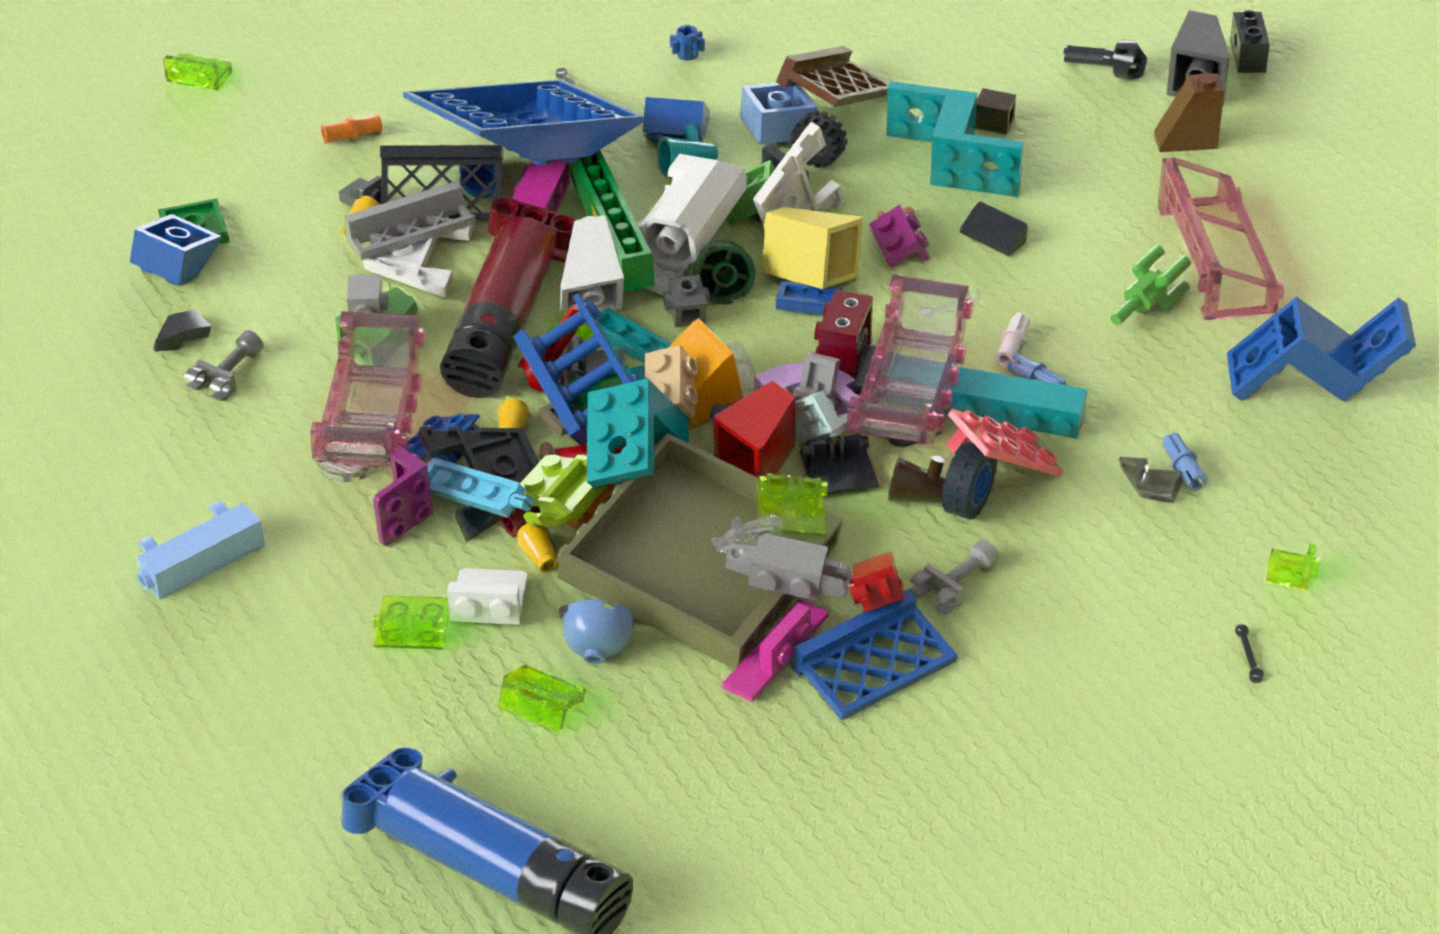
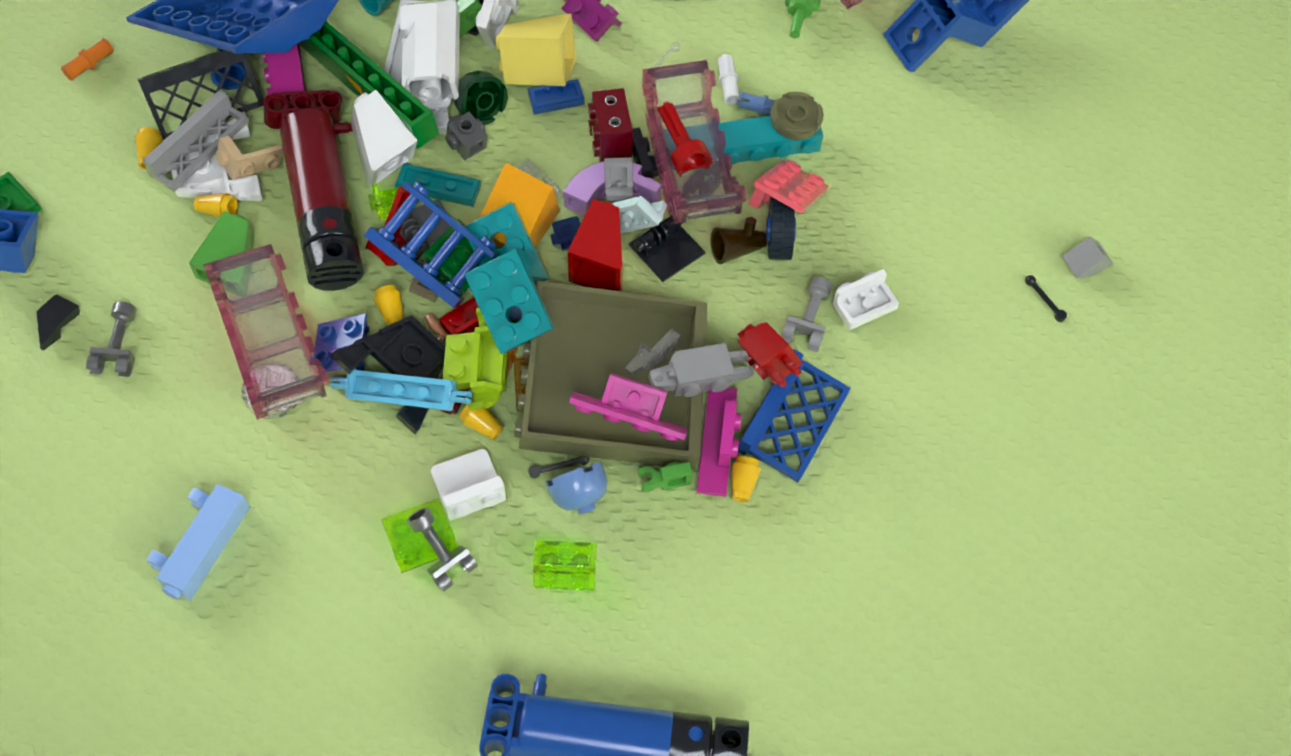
camera: 30 degrees left, 20 degrees up
(361, 188) = (131, 120): dark grey bracket -> none
(366, 294) = (210, 238): light grey brick -> none
(403, 281) = (216, 204): none -> yellow cone
(405, 500) = (352, 407): magenta bracket -> none
(414, 593) = (422, 521): none -> flat silver bar
(449, 255) = (245, 165): none -> tan bracket
(674, 375) = (511, 227): tan bracket -> none
(695, 565) = (632, 403): none -> dark pink bracket
(702, 659) = (671, 476): none -> bright green plate
(781, 689) = (744, 477): none -> yellow cone
(797, 505) = (667, 309): clear neon green hinge -> none
(903, 372) = (688, 153): none -> red piece
(1027, 578) = (864, 299): none -> white bracket
(1058, 386) = (796, 116): none -> olive tile
(1151, 483) = (895, 172): clear smoke slope -> none
(1184, 461) = (910, 144): medium blue axle -> none
(1292, 568) = (1040, 213): clear neon green bracket -> none
(1324, 629) = (1087, 258): none -> light grey brick

